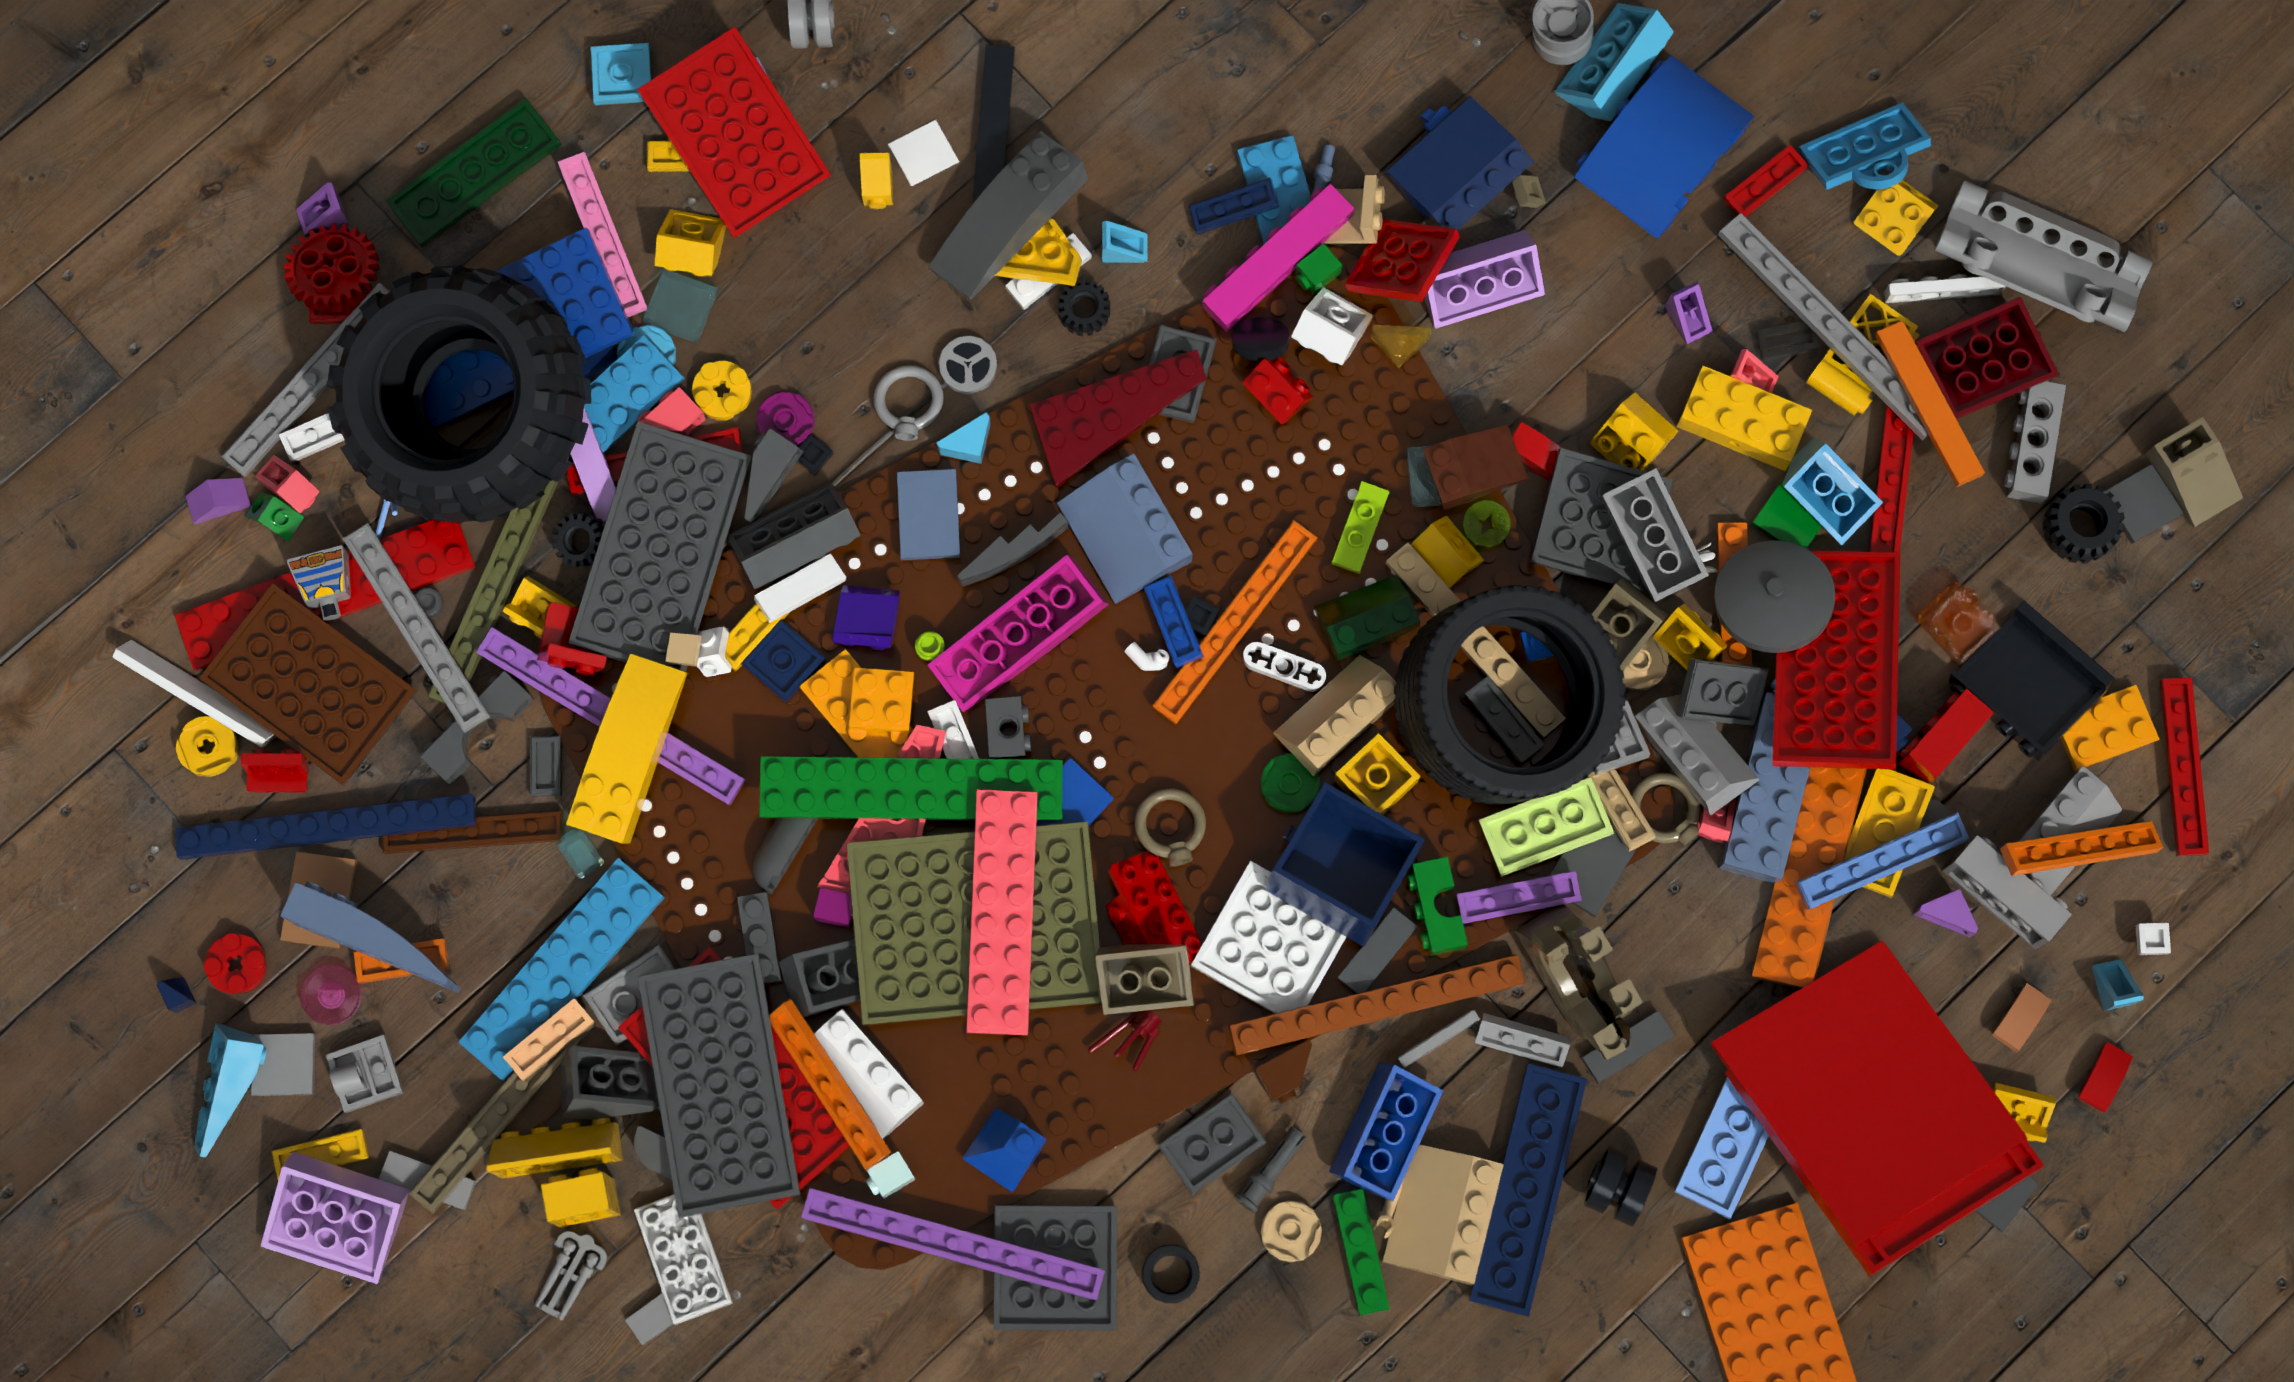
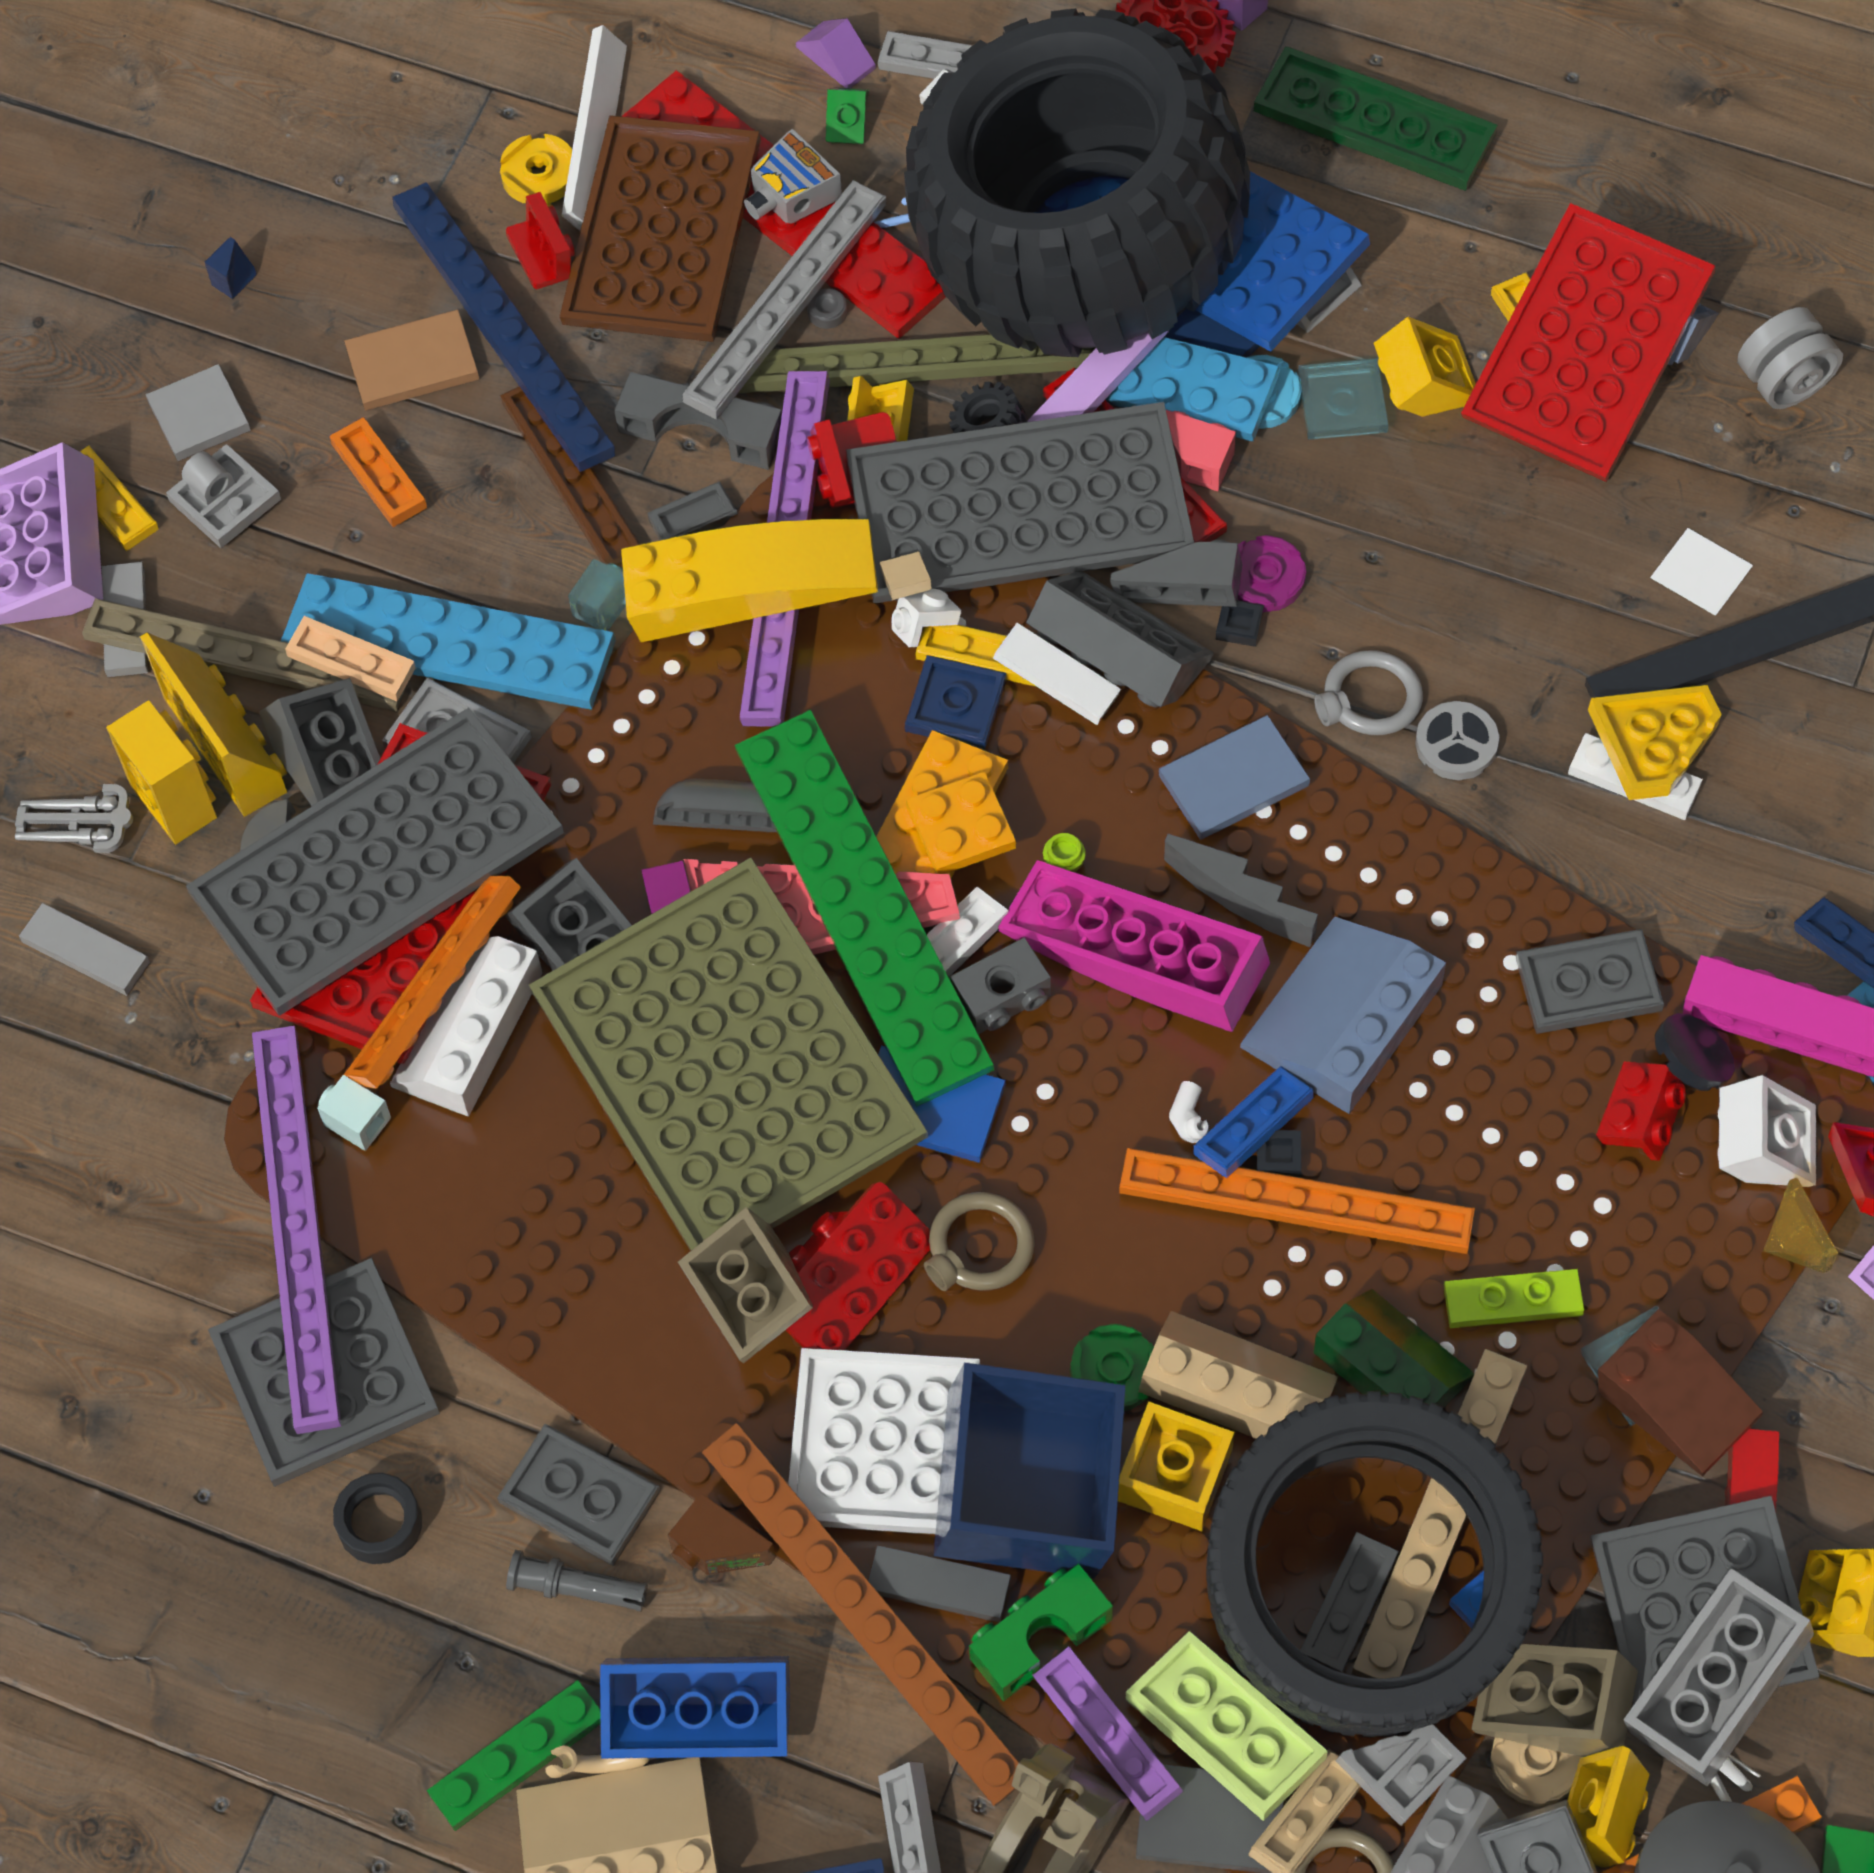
camera: 70 degrees right, 15 degrees down
(218, 964) = (291, 294): red plate -> none
(234, 1065) = (167, 353): medium azure wedge -> none
(287, 484) = (889, 107): coral slope -> none
(330, 995) = (302, 422): clear pink tile -> none
(343, 923) = (383, 404): sand blue slope -> none
(597, 219) = (1378, 278): bright pink plate -> none
(620, 72) = (1596, 191): medium azure plate -> none
(682, 1260) = (140, 936): white tile -> none
(731, 403) = (1263, 468): yellow plate -> none
(759, 934) = (593, 830): dark grey plate -> none
(867, 617) = (1062, 767): dark purple slope -> none
(876, 180) = (1629, 524): yellow slope -> none
(968, 441) = (1356, 776): medium azure slope -> none
(1002, 912) = (753, 1080): coral plate -> none
(1004, 1149) = (450, 1238): blue slope -> none
(1008, 214) = (1678, 685): dark grey slope -> none
(1087, 324) = (1615, 814): black tyre -> none
(1101, 415) = (1485, 916): dark red wing -> none
(1123, 244) = (1722, 838): medium azure slope -> none
(1143, 1024) = (694, 1325): dark red plant -> none
(1261, 665) = (1253, 1260): white beam -> none
(1291, 1231) = (505, 1650): tan tile -> none
(1318, 269) = (1833, 1082): green brick -> none
(1437, 1039) = (855, 1719): light grey tile -> none
(1447, 551) = (1545, 1422): yellow panel -> none
(1481, 511) = (1627, 1445): clear neon green gear -> none

